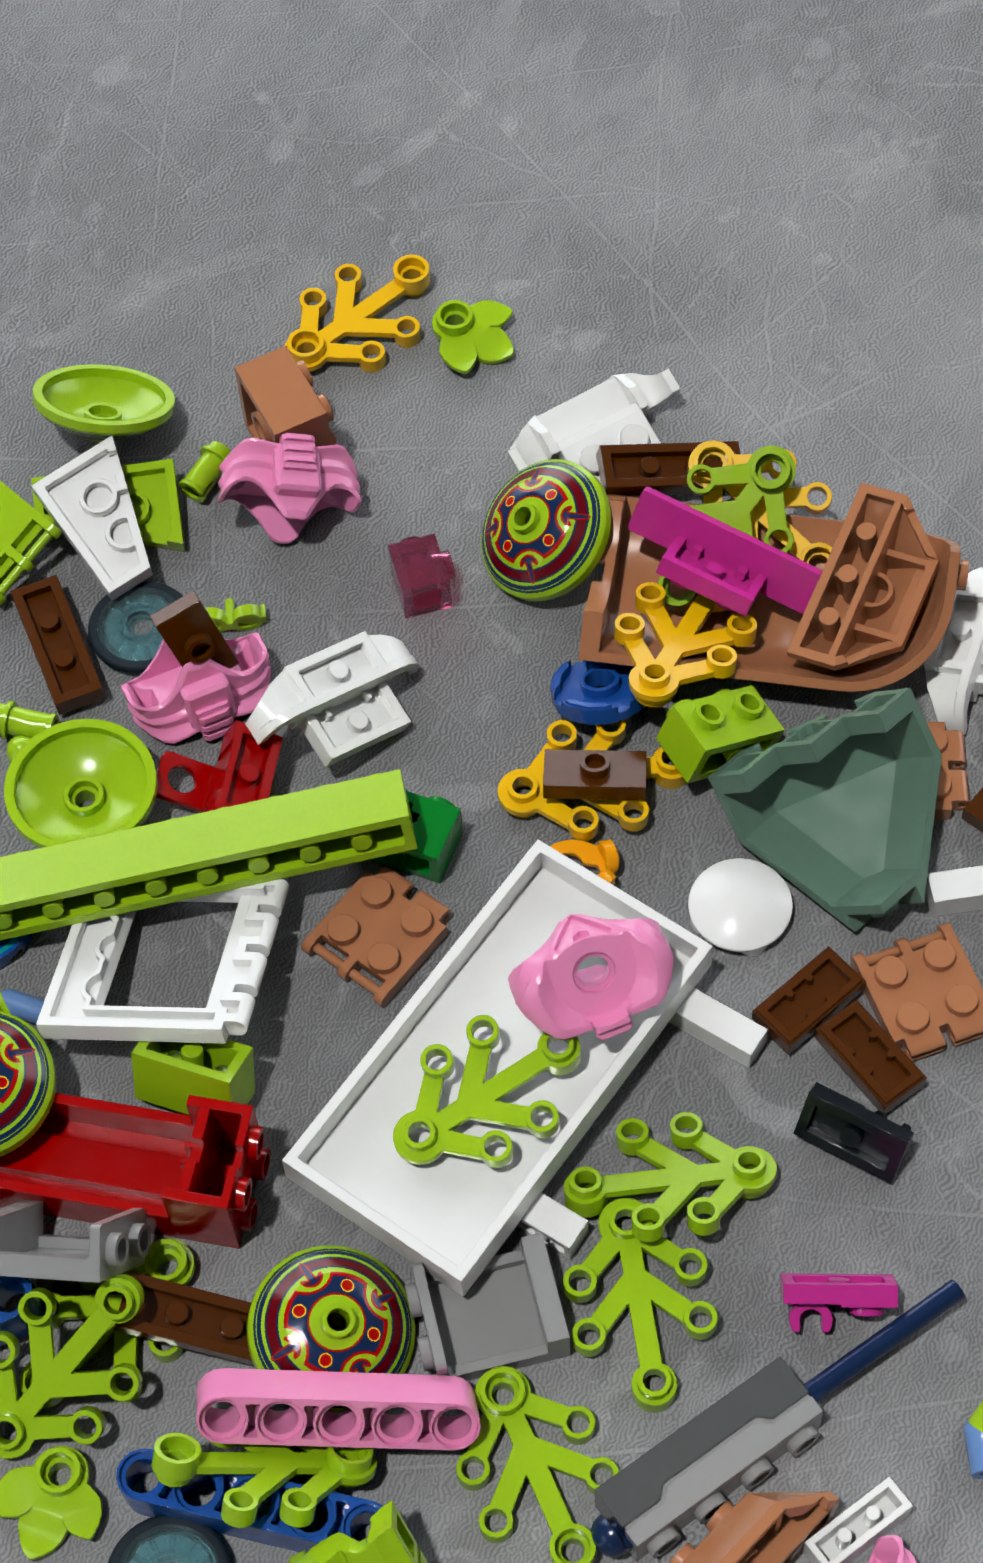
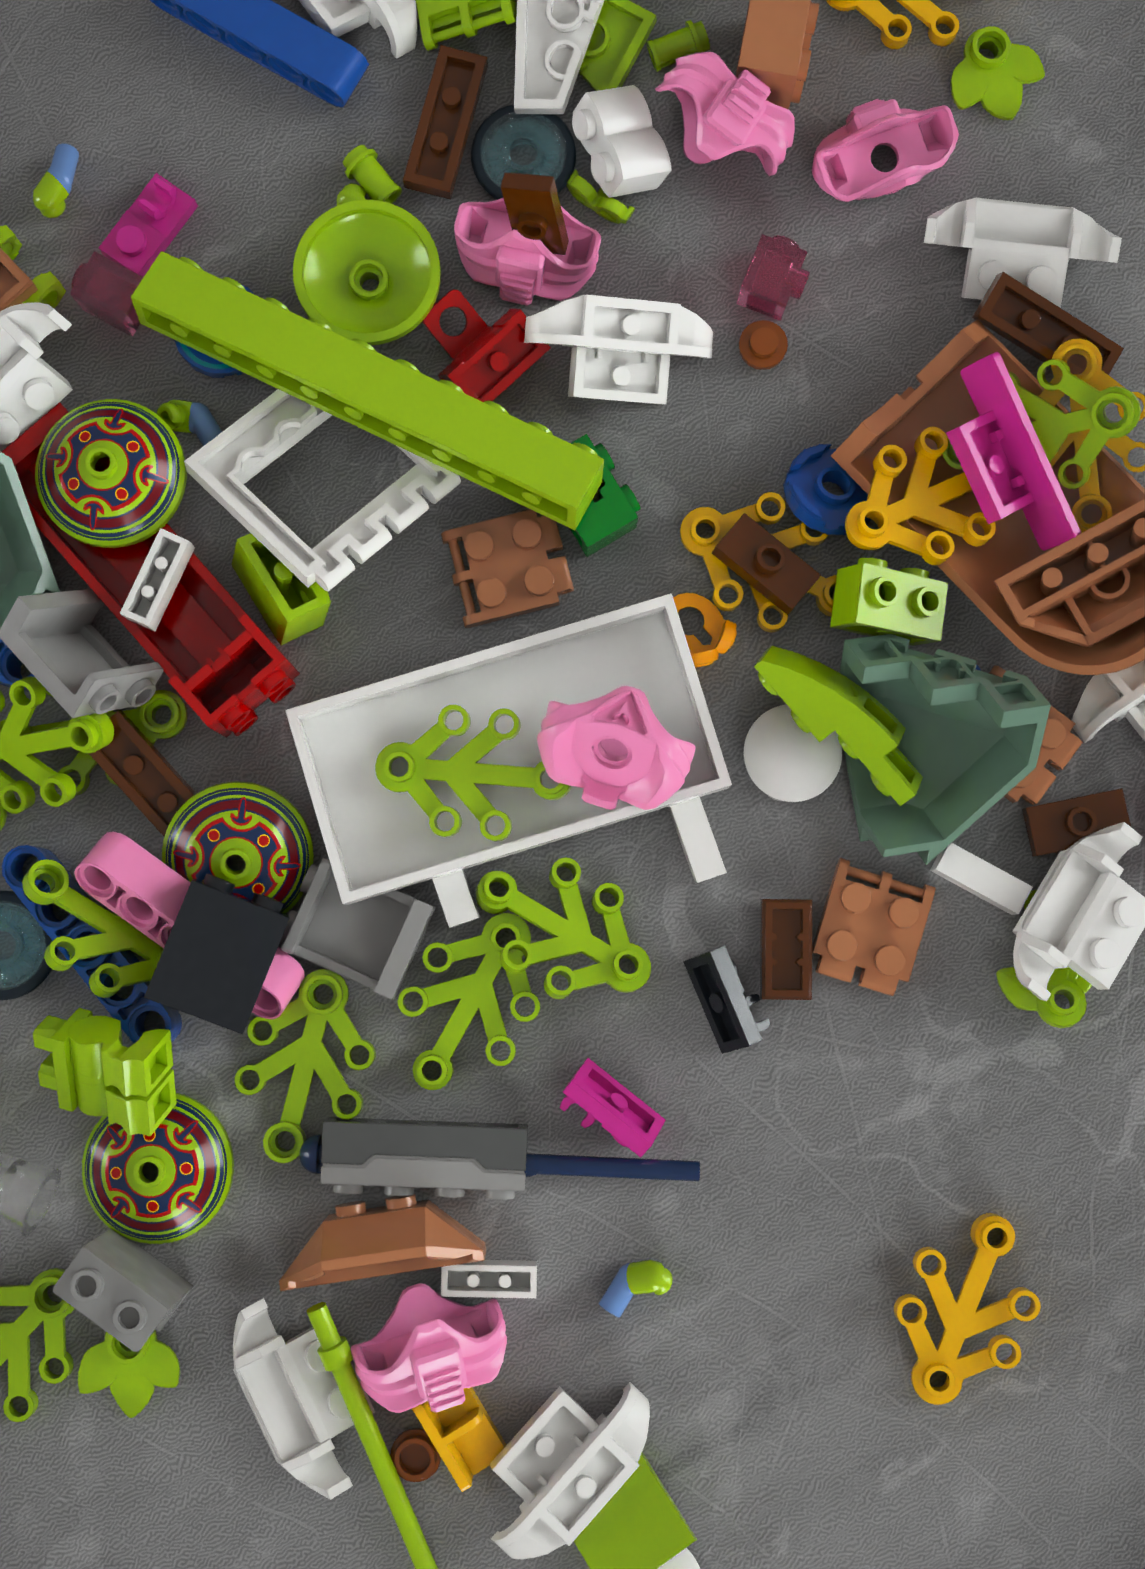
camera: 30 degrees right, 25 degrees up
(84, 1136) = (157, 579): none -> white piece
(217, 560) = (621, 141): none -> white brick
(386, 1404) = (218, 953): none -> black panel
(453, 629) = (763, 345): none -> dark orange plate
(455, 409) = (919, 139): none -> bright pink piece
(560, 540) = (914, 328): dish -> none
(737, 833) = (830, 702): none -> lime slope
(808, 999) = (779, 869): reddish brown plate -> none

